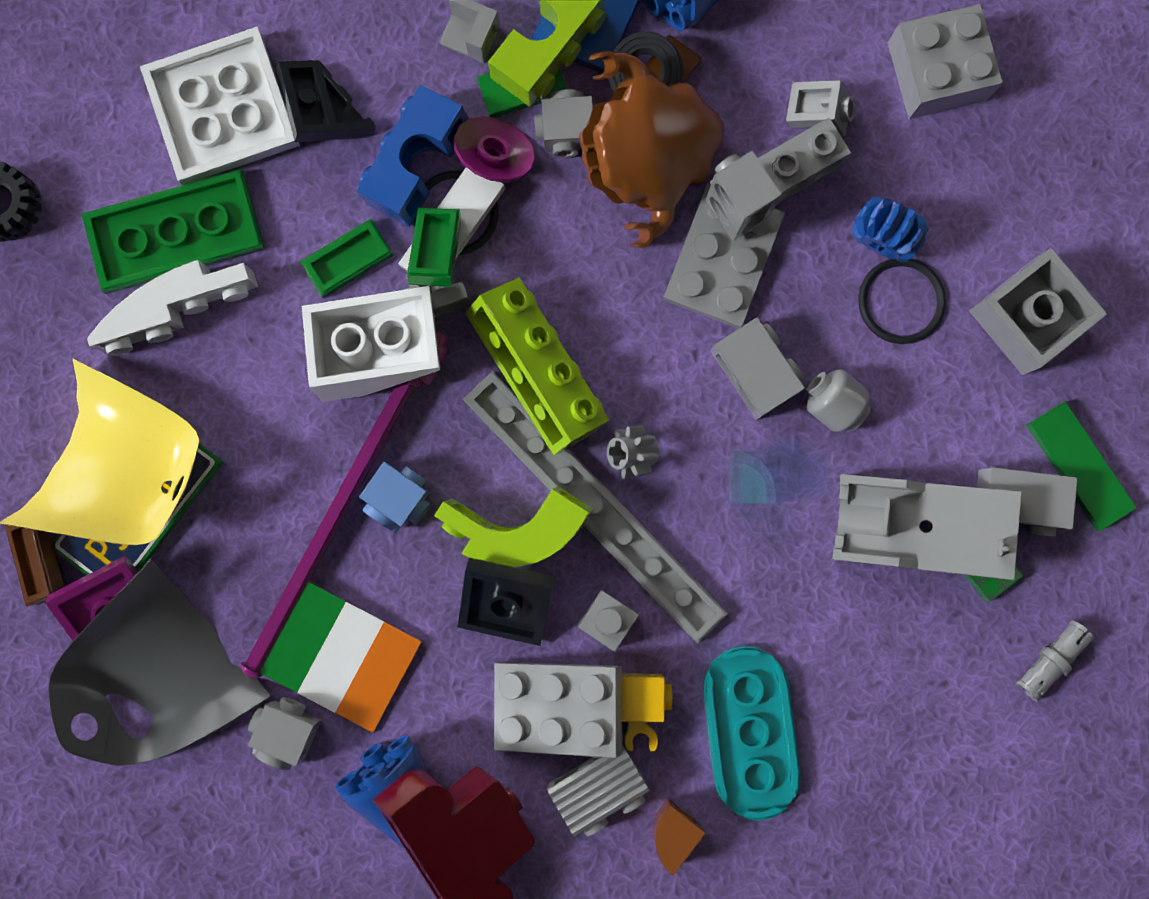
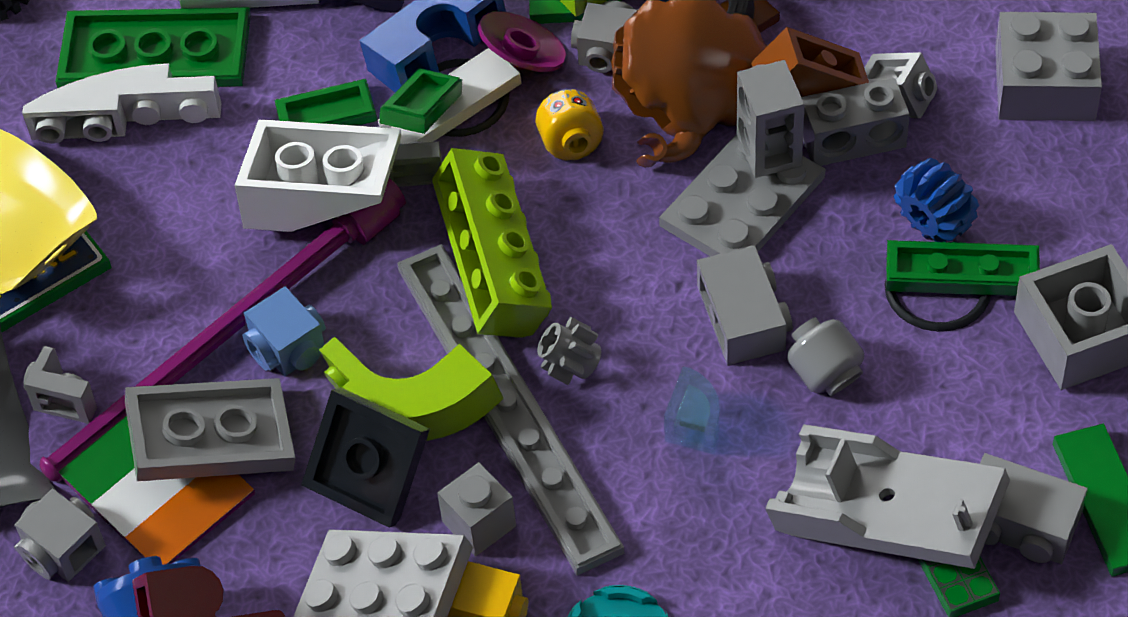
camera: 20 degrees right, 30 degrees down
(237, 601) = (58, 393): none -> light grey bracket
(368, 608) = (208, 429): none -> light grey plate
(561, 225) = (566, 122): none -> yellow head
(756, 127) = (814, 62): none -> dark orange brick
(921, 283) = (958, 267): none -> green tile

